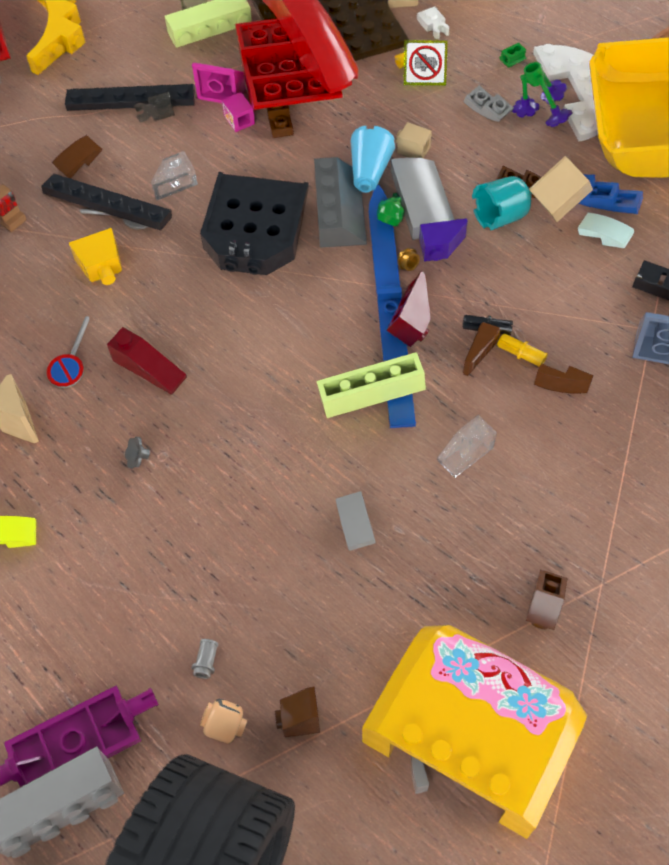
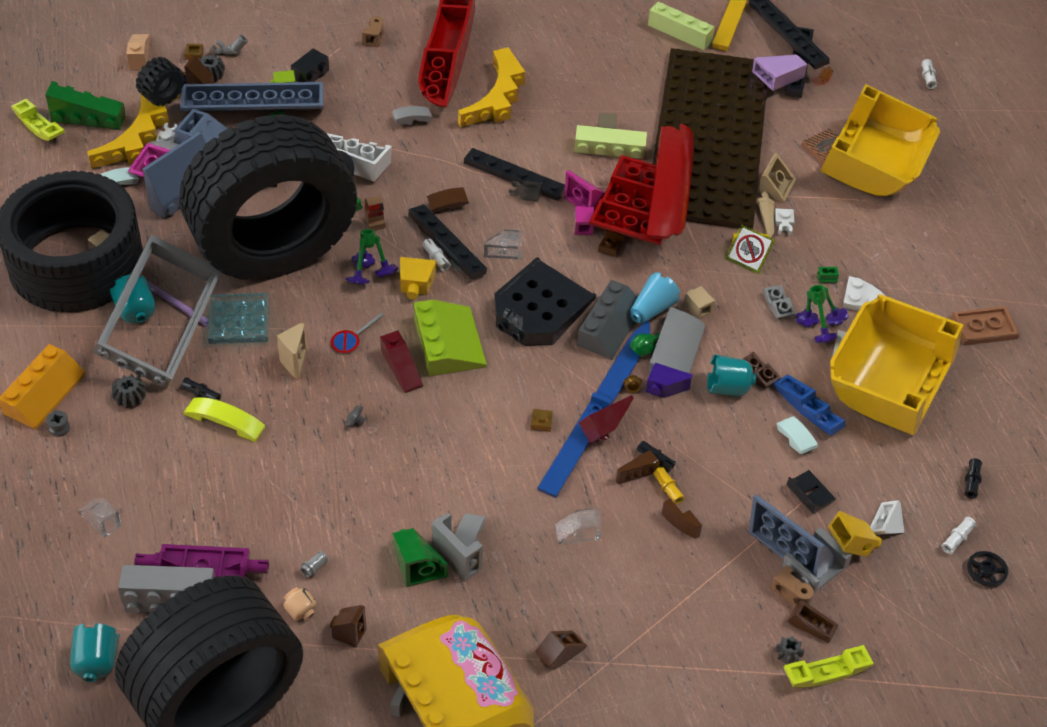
camera: 25 degrees right, 10 degrees down
(27, 266) = (364, 259): none -> plant
(104, 222) = (436, 254): none -> white pin
(178, 308) = (448, 337): none -> lime slope
(319, 583) = (417, 558): none -> green slope
(341, 347) = (541, 420): none -> pearl gold plate
(357, 551) = (463, 559): none -> light grey panel
(371, 385) = (540, 452): yellowish green brick -> none
(410, 20) = (767, 211): none -> tan bar
(561, 188) = (776, 388): tan slope -> none

